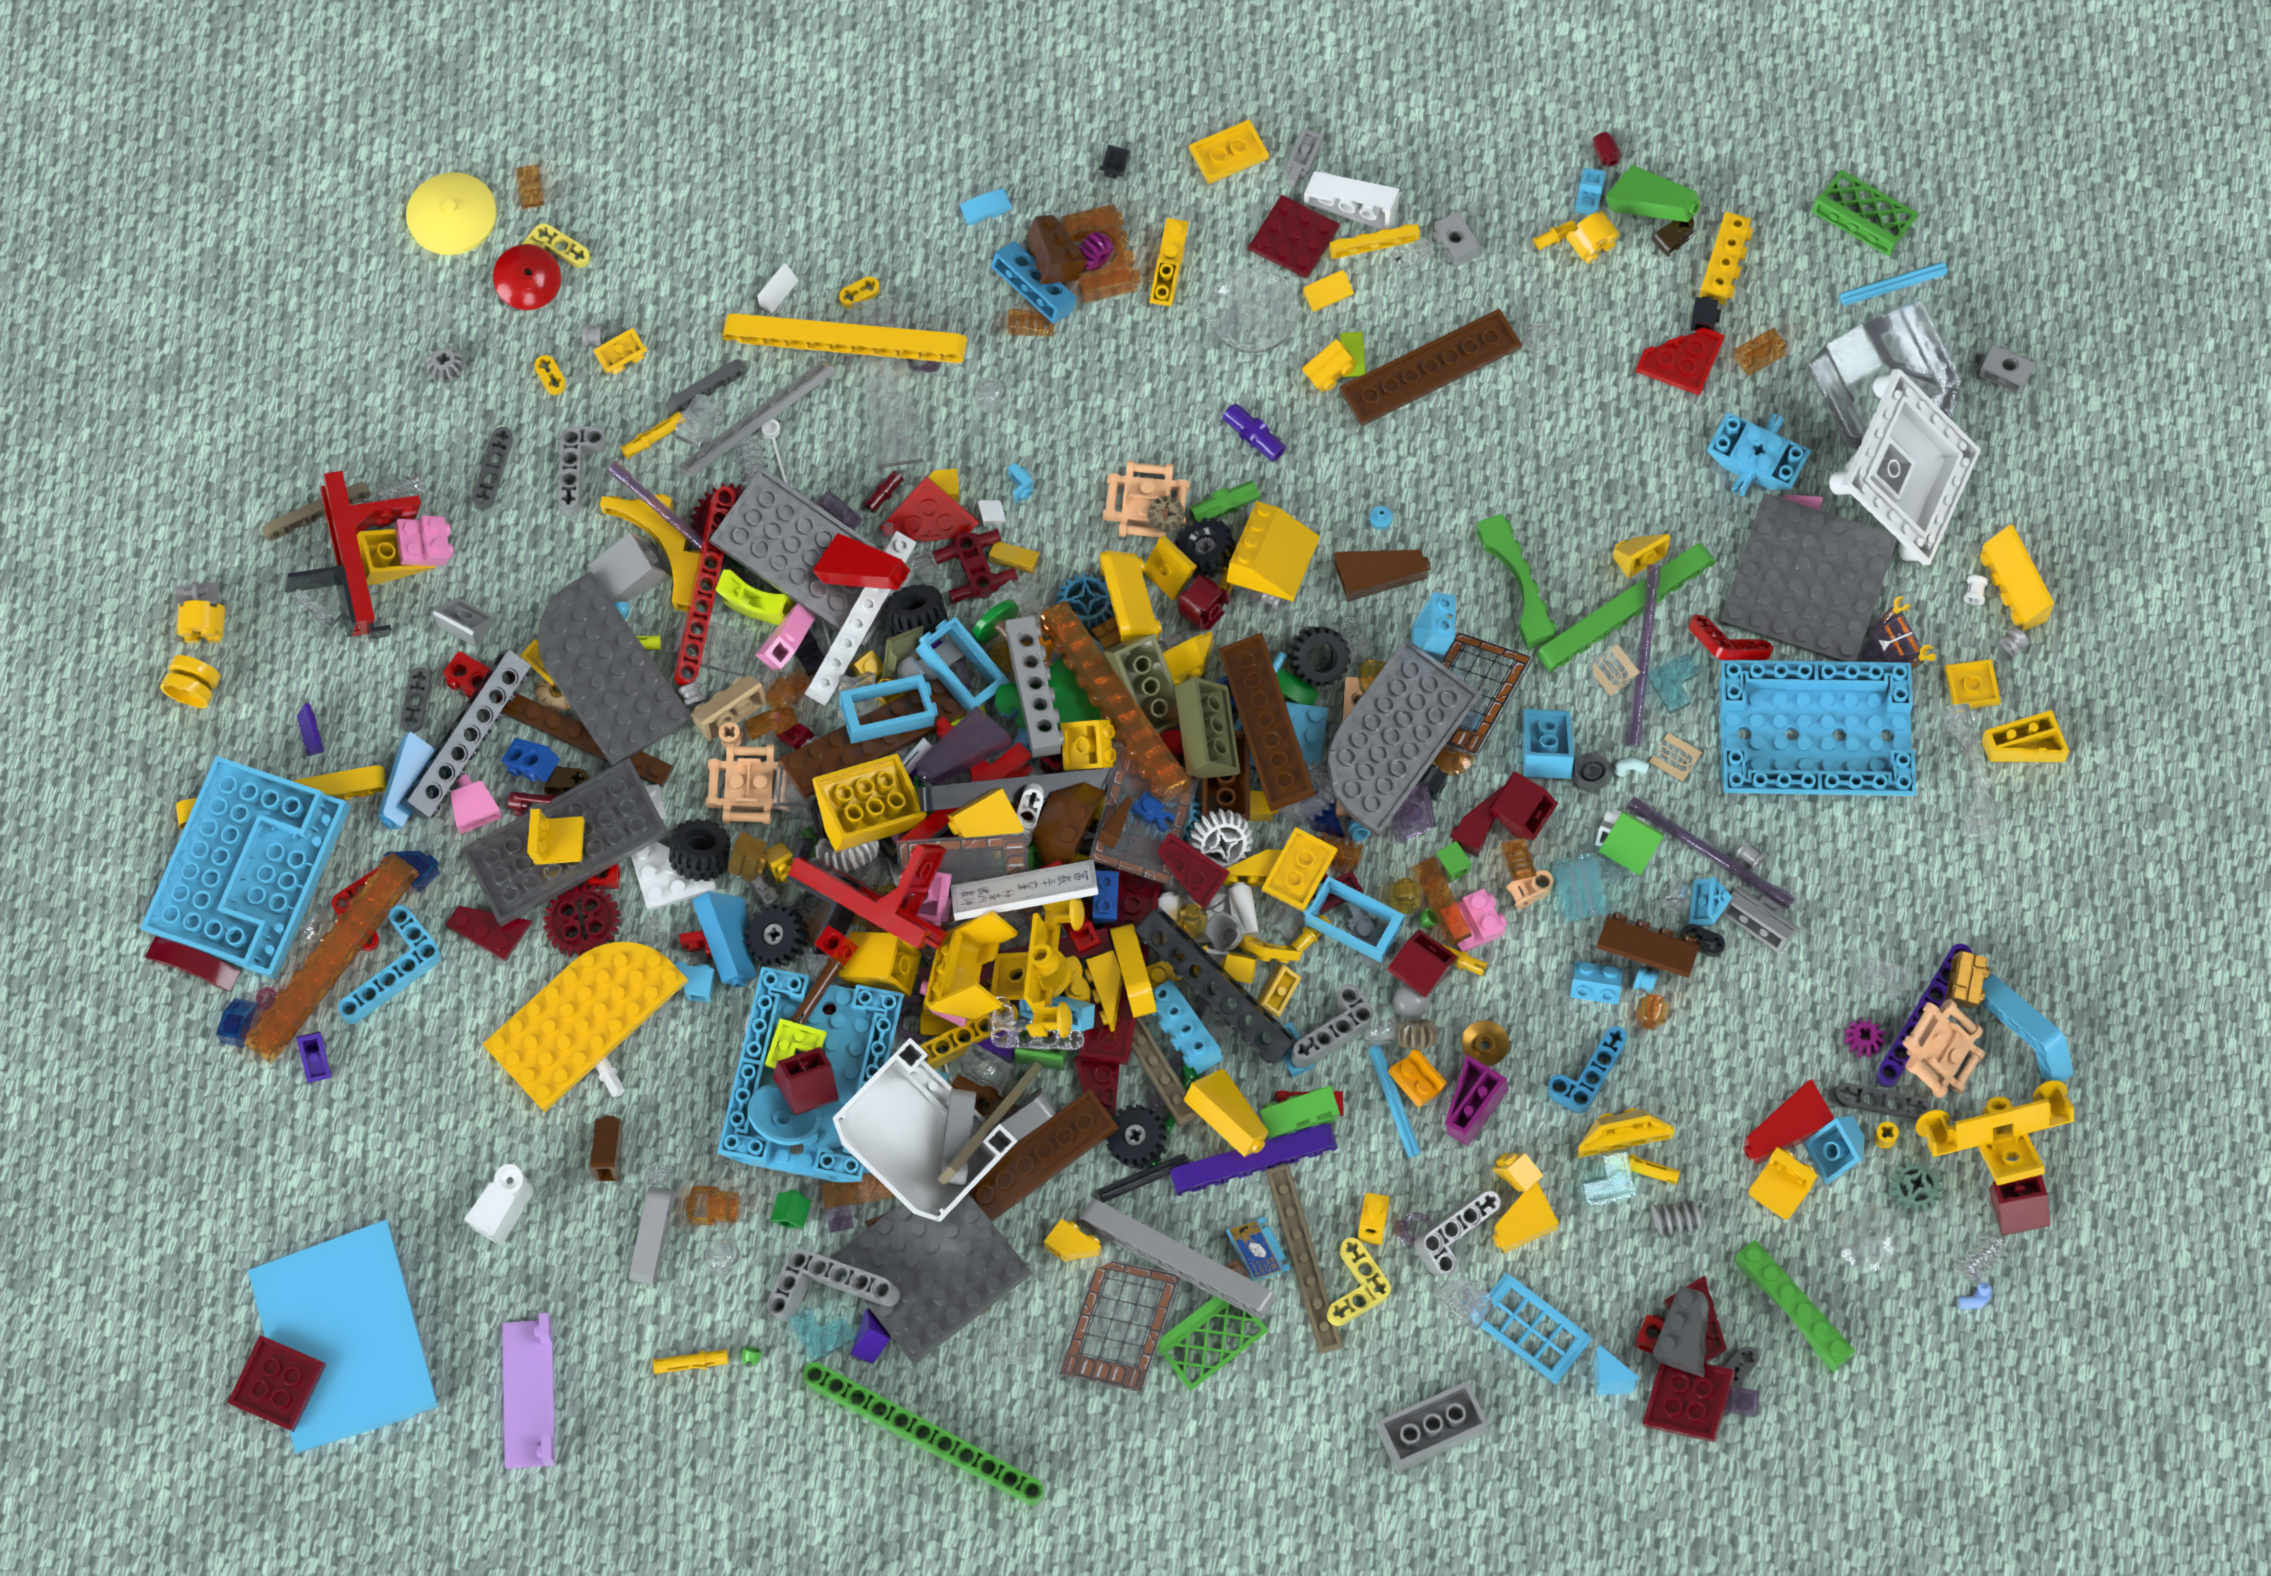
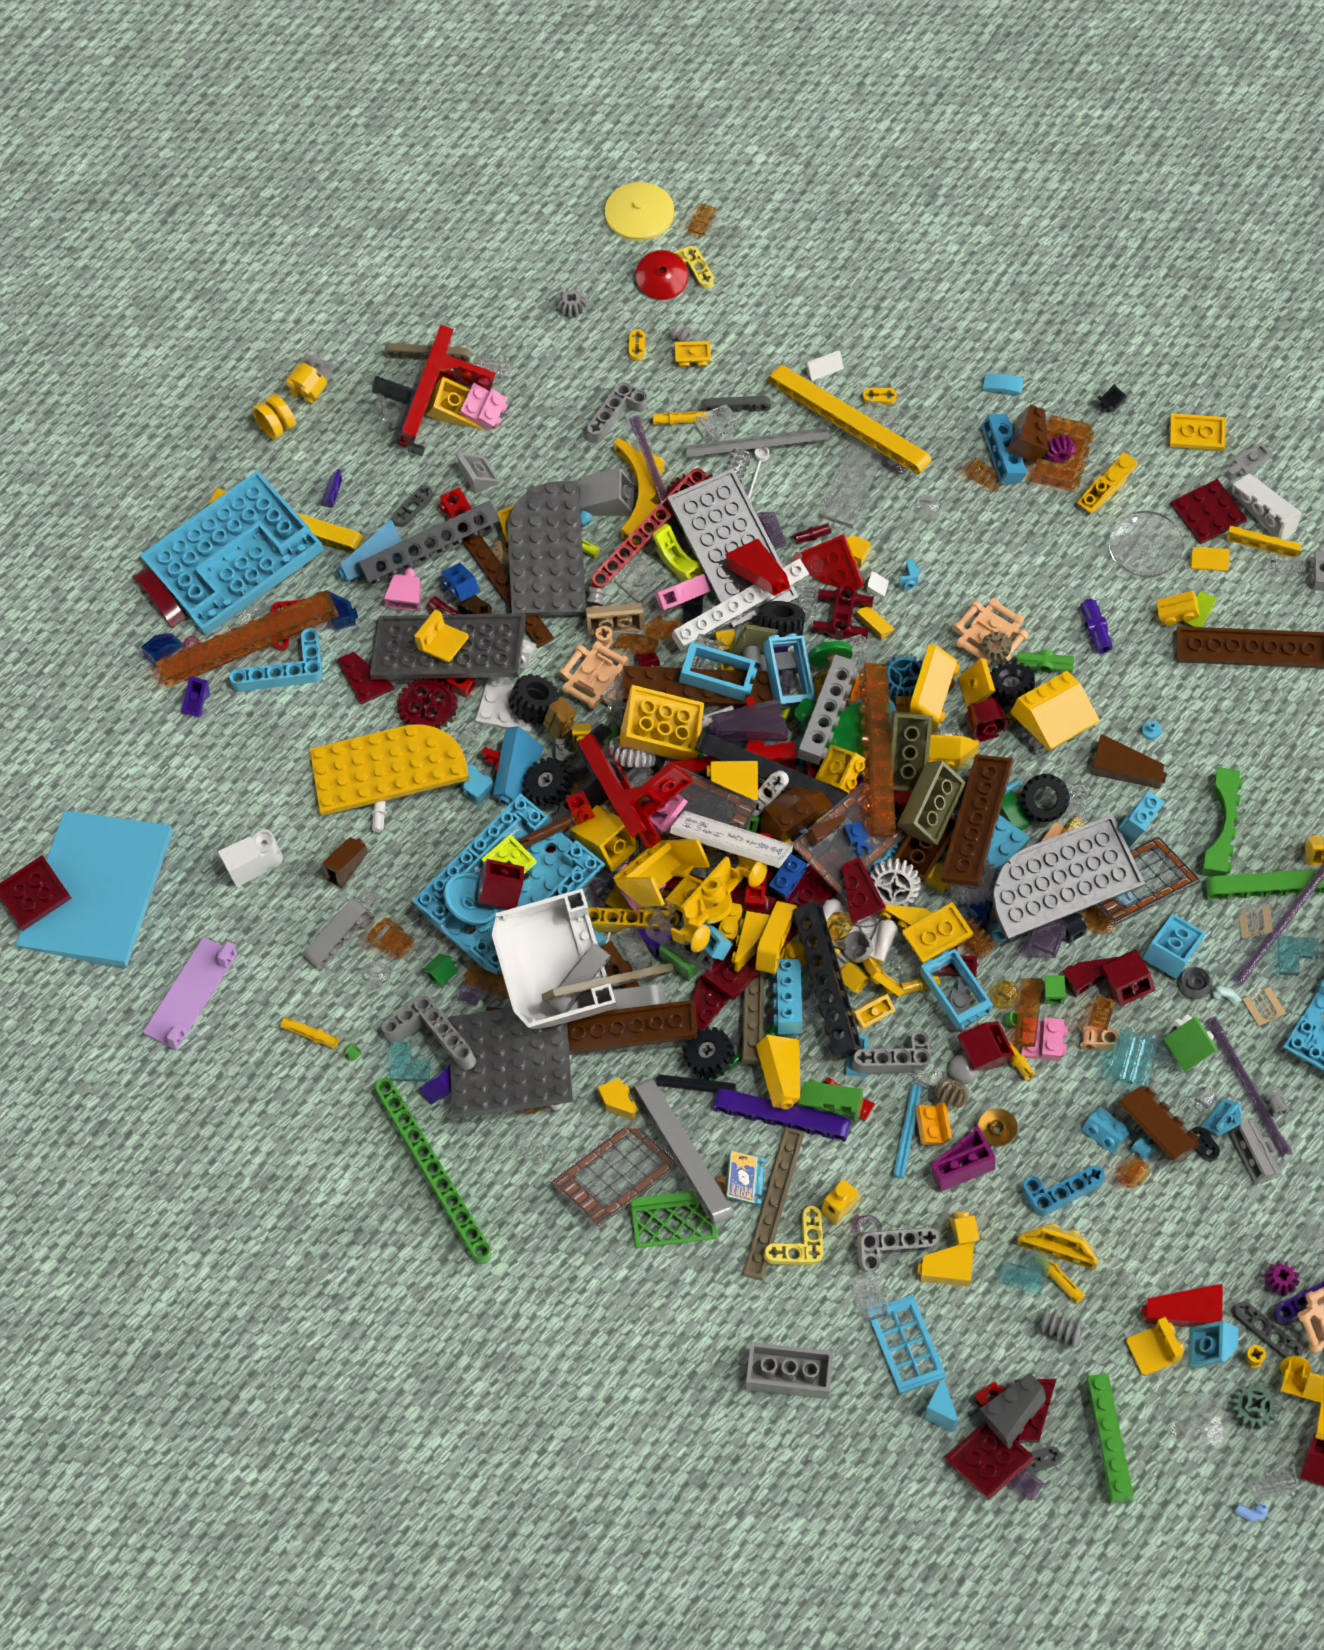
camera: 30 degrees right, 5 degrees down
(493, 468) = (560, 385): dark grey beam -> none

